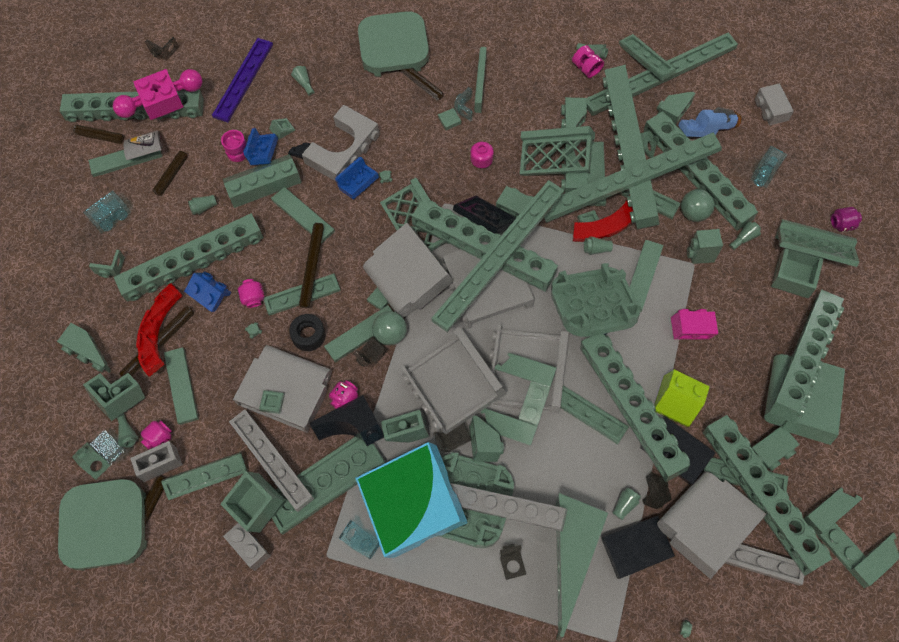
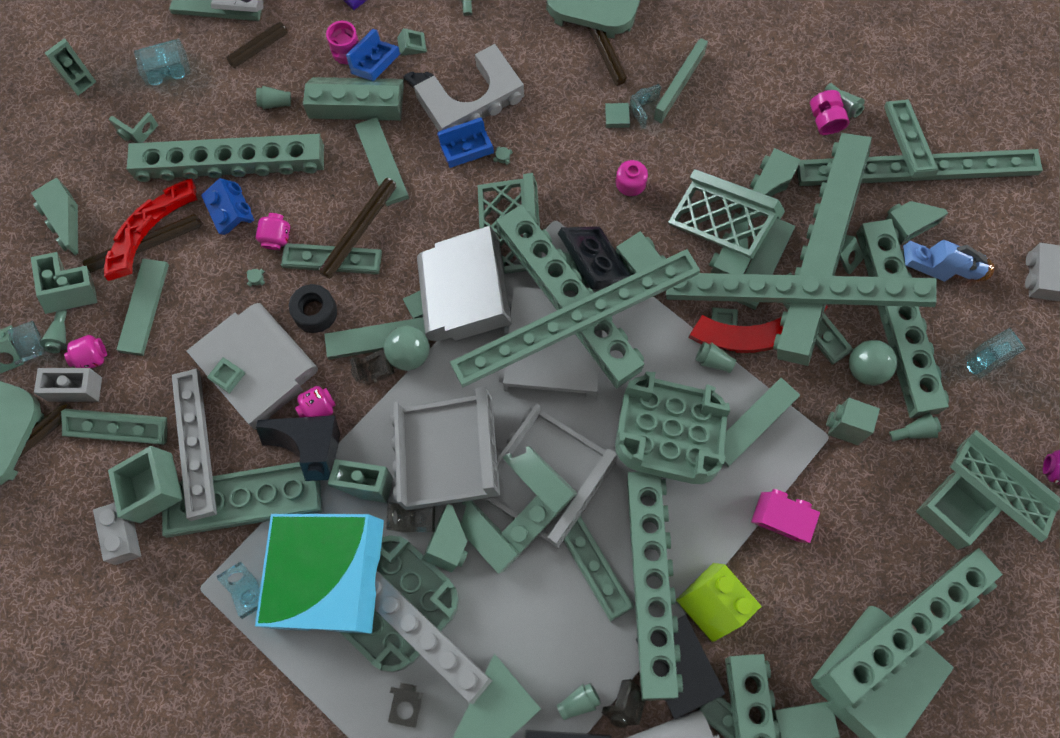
camera: 25 degrees right, 5 degrees up
(41, 242) = (70, 67): none -> sand green slope

